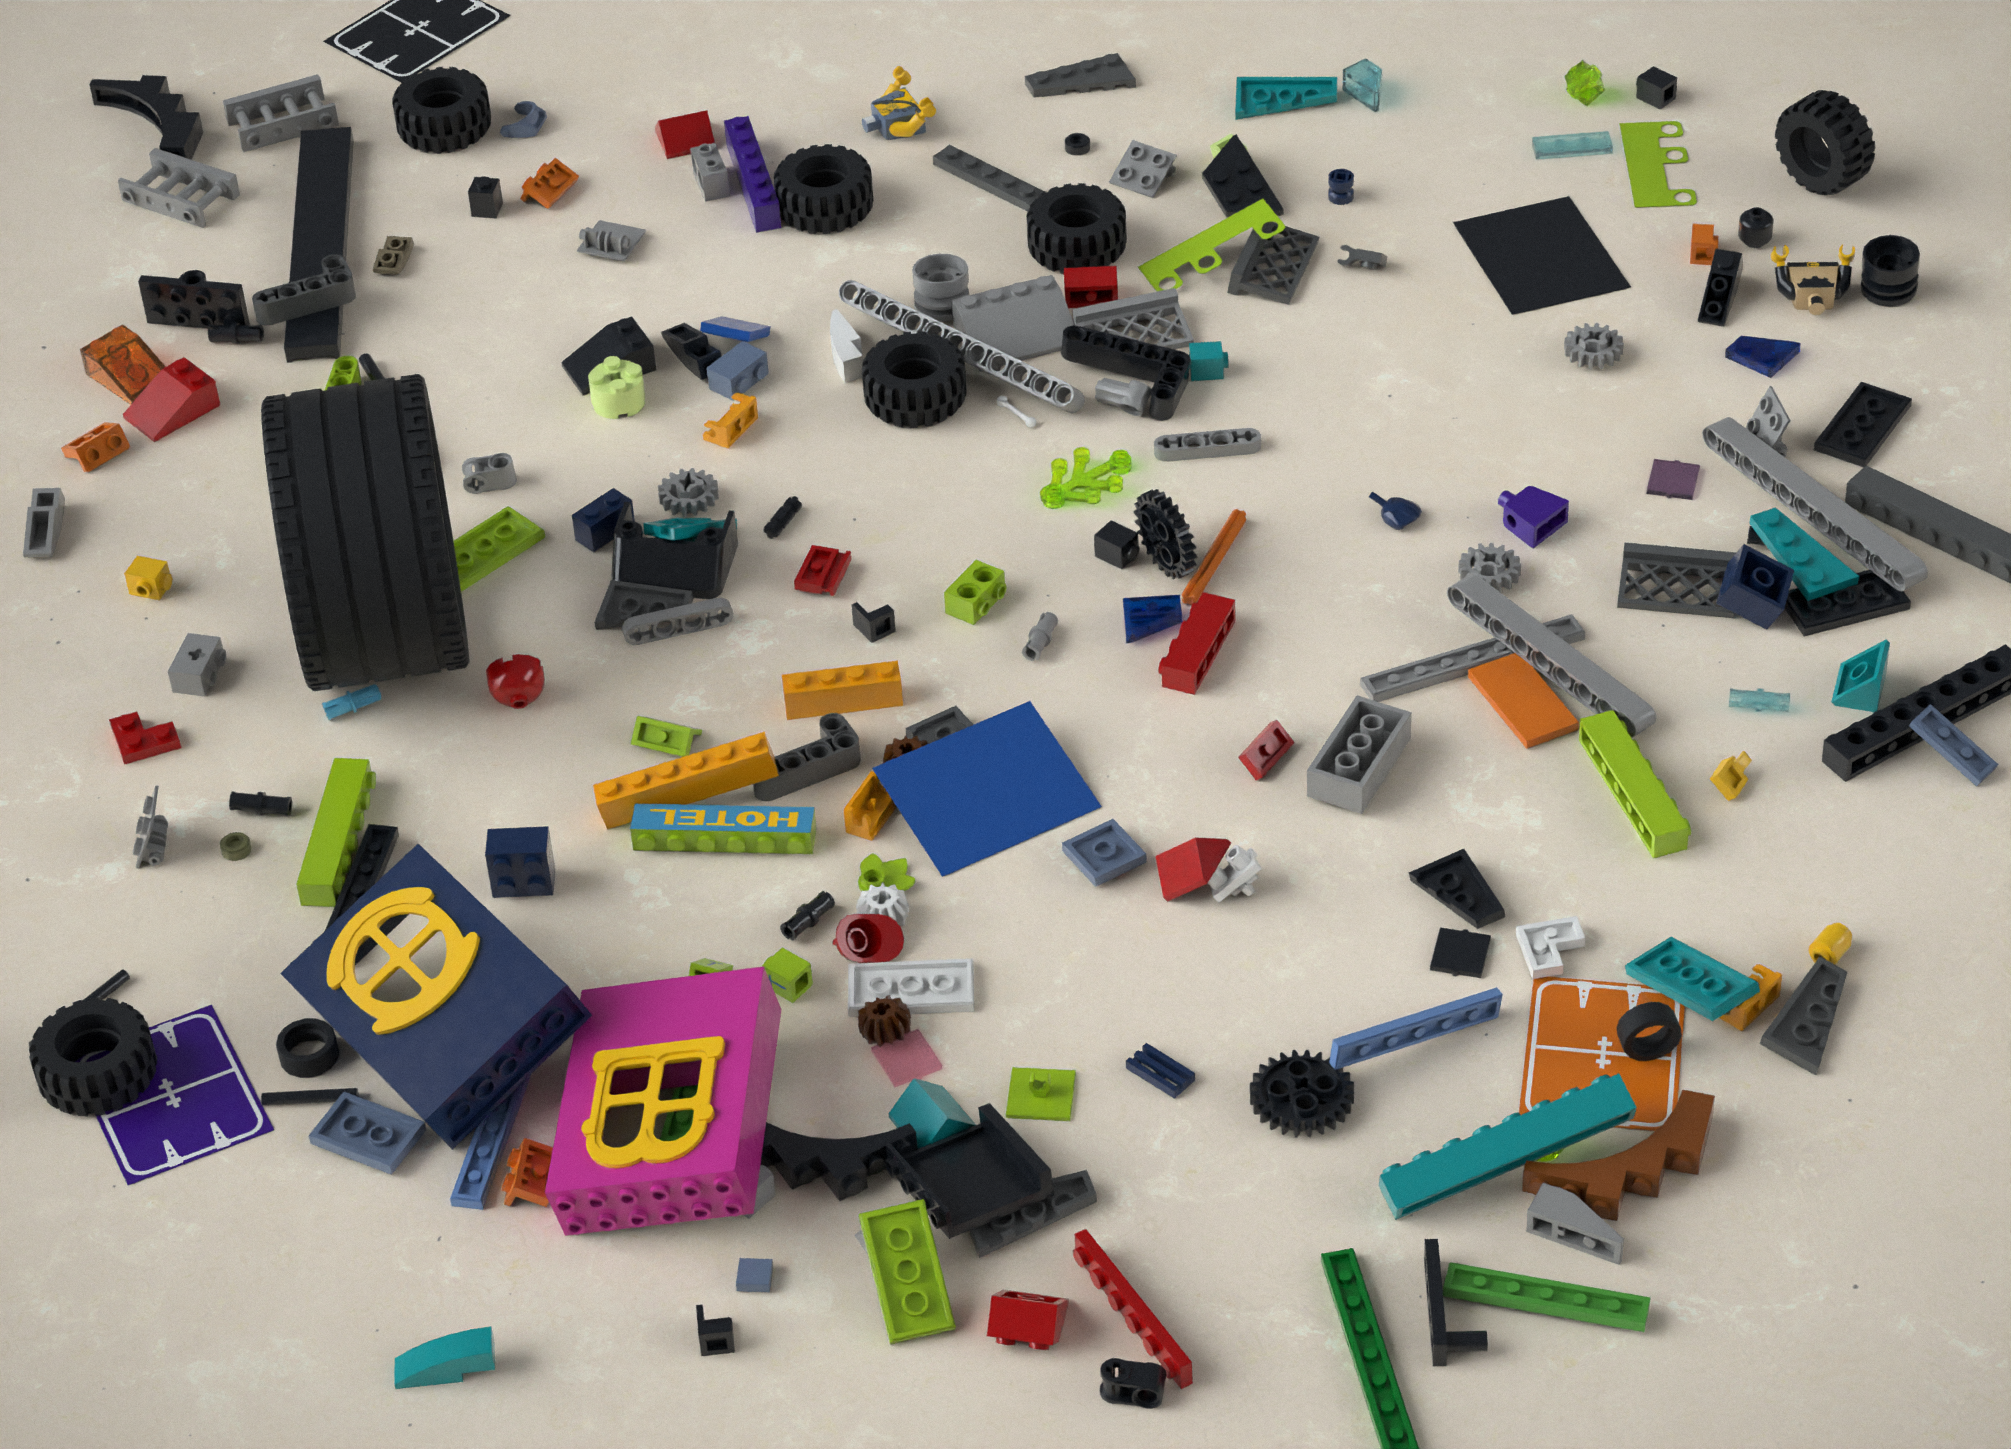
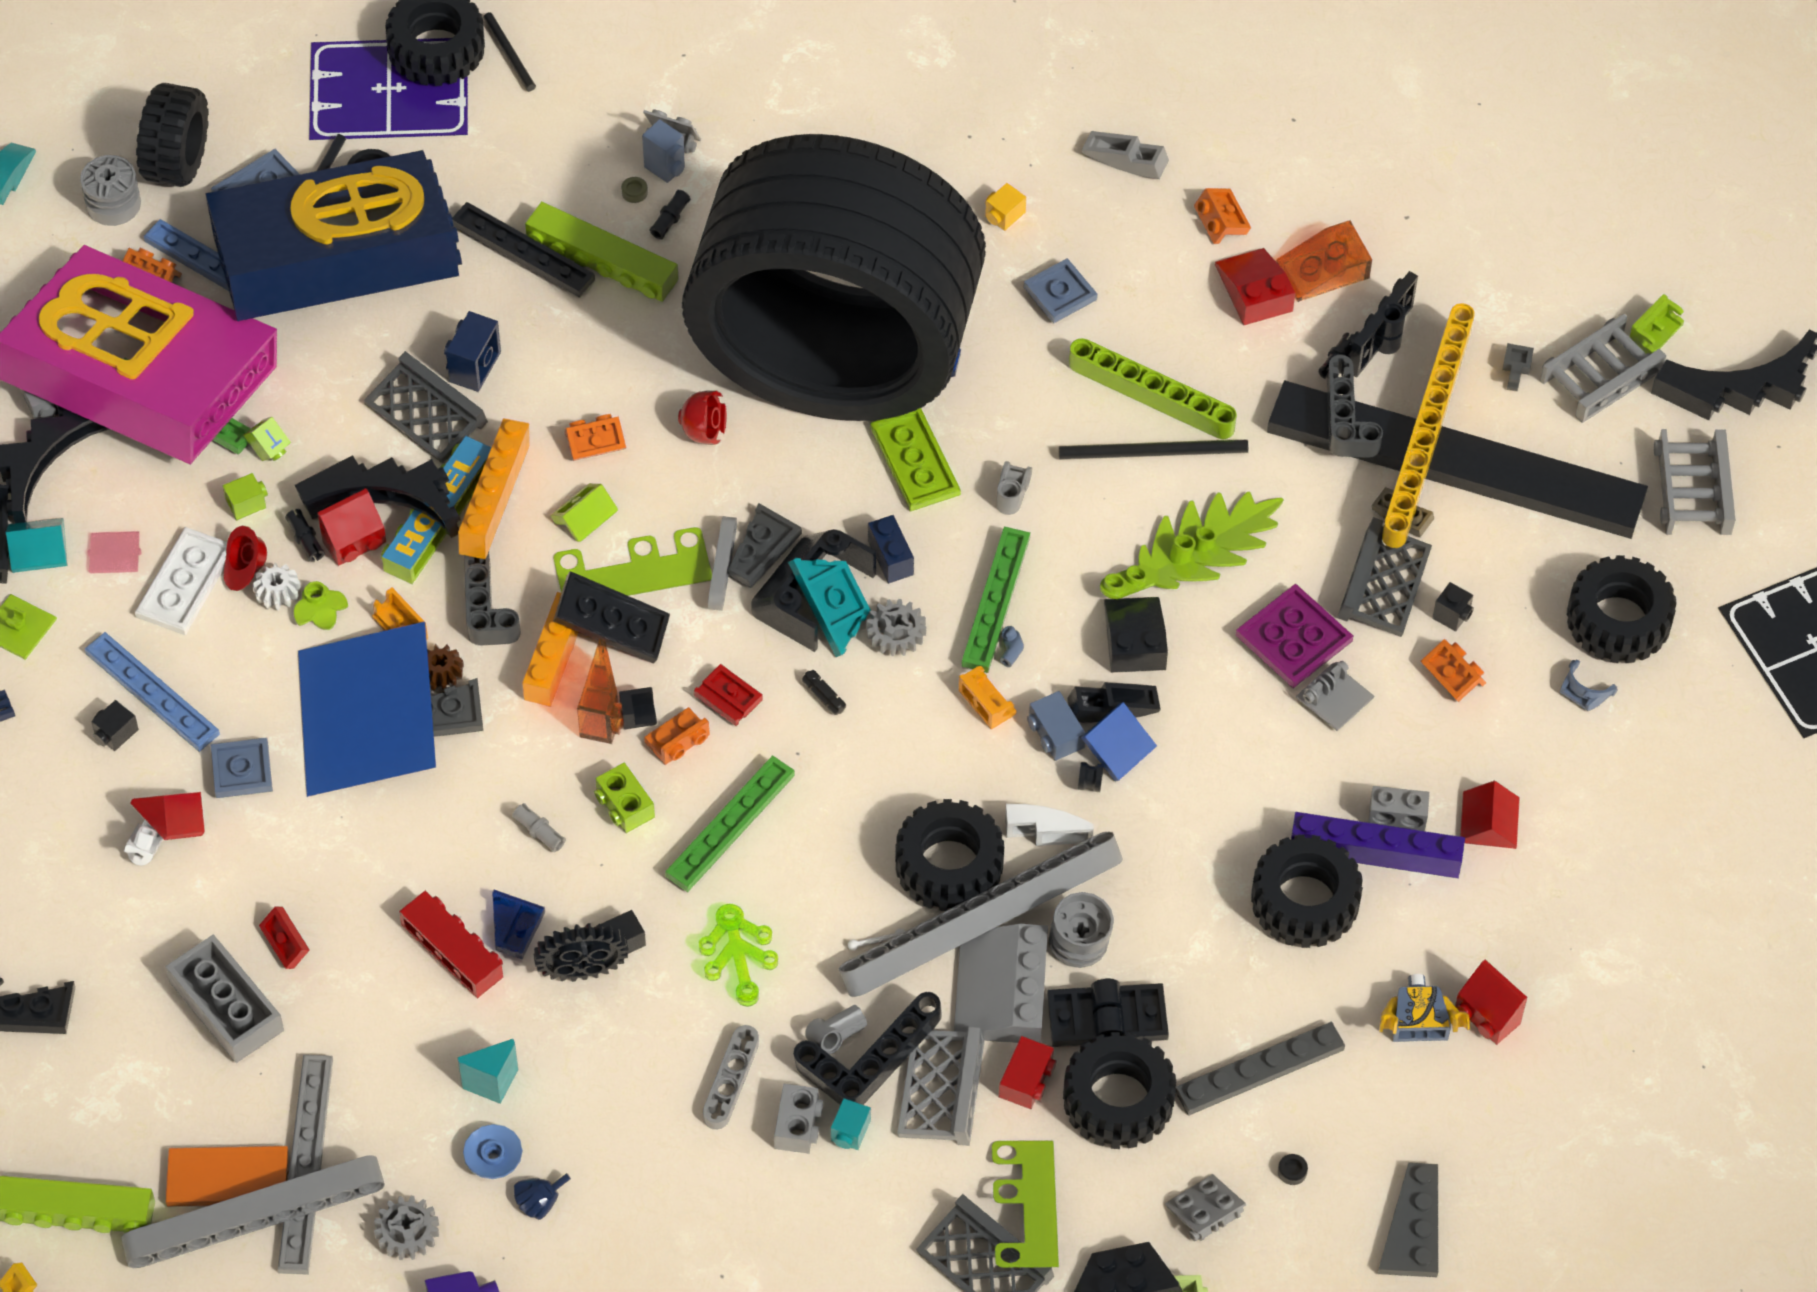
camera: 110 degrees right, 15 degrees up
(108, 175) = (1657, 325): none -> lime hinge
(186, 819) = (663, 151): none -> sand blue brick
(194, 234) = (1518, 362): none -> dark grey plate
(236, 515) = (1060, 290): none -> sand blue plate
(301, 244) = (1428, 426): none -> yellow beam
(343, 1160) = (172, 134): none -> black tyre
(437, 1241) = (110, 190): none -> light grey wheel
(468, 255) = (1361, 577): none -> dark grey fence
(494, 356) = (1196, 546): none -> lime plant
(562, 274) = (1294, 635): none -> magenta plate
(572, 756) = (595, 437): none -> orange bracket
(581, 873) = (444, 395): none -> dark grey fence
(617, 388) = (1079, 618): yellowish green brick -> none
(620, 447) = (996, 599): none -> bright green plate
(663, 425) = (1013, 644): none -> sand blue arm
(712, 674) = (648, 571): none -> lime piece
(731, 890) = (387, 484): none -> black arch
(785, 340) = (1090, 777): none -> black wheel
(785, 874) = (351, 527): none -> slope
(789, 655) = (611, 617): none -> black tile
(866, 76) = (1491, 1002): none -> red slope
(878, 631) = (599, 704): none -> clear orange slope
(884, 1020) = (149, 541): reddish brown gear -> none
(885, 585) = (677, 736): none -> orange bracket
(959, 524) = (730, 823): none -> bright green plate
(1001, 257) = (1104, 1008): none -> black plate
(1055, 959) = (152, 691): none -> medium blue tile
(1117, 958) = (114, 725): none -> black brick
(1214, 557) = (567, 1013): orange axle -> none
(1222, 391) = (794, 1118): none -> light grey brick
(1308, 559) = (489, 1070): none -> teal slope
(1381, 544) = (492, 1140): none -> medium blue dish

